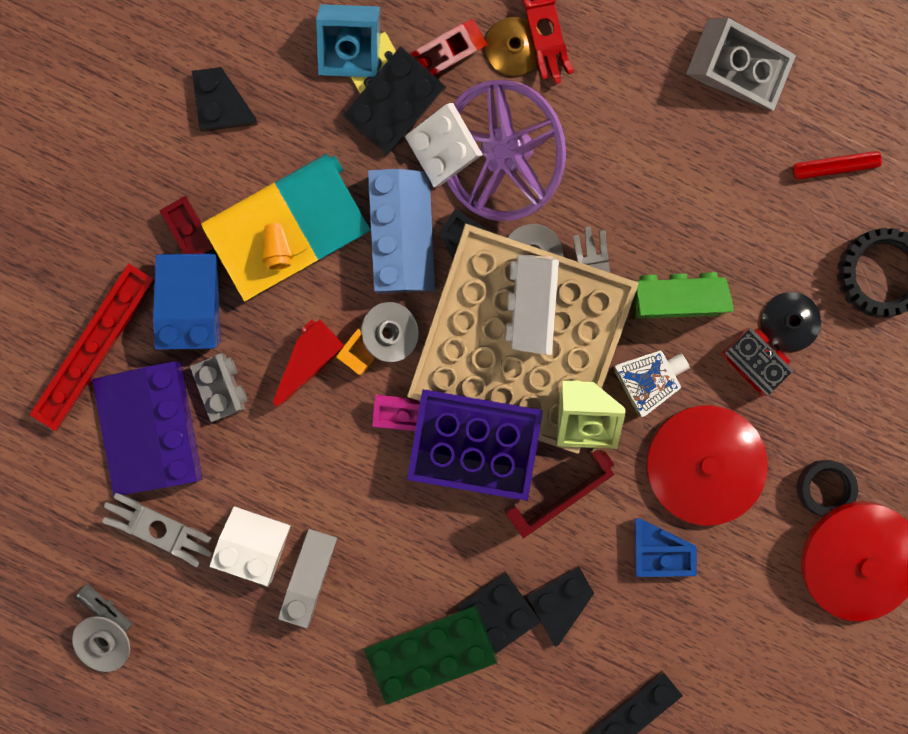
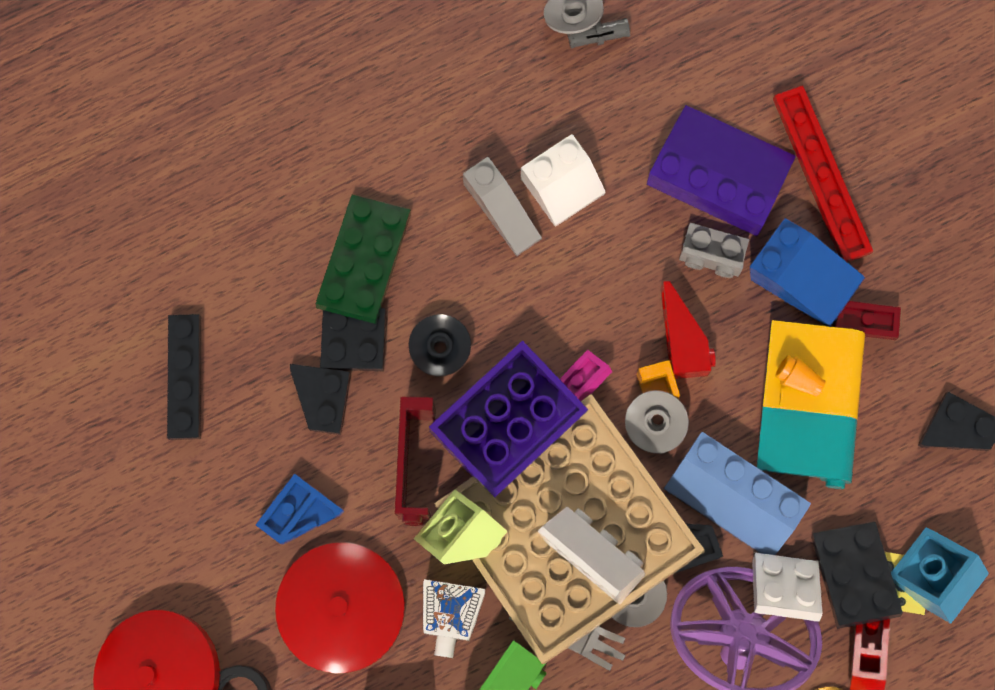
camera: 130 degrees right, 10 degrees down
(140, 527) = (650, 116): light grey piece -> none
(454, 558) = (436, 330): none -> black dish

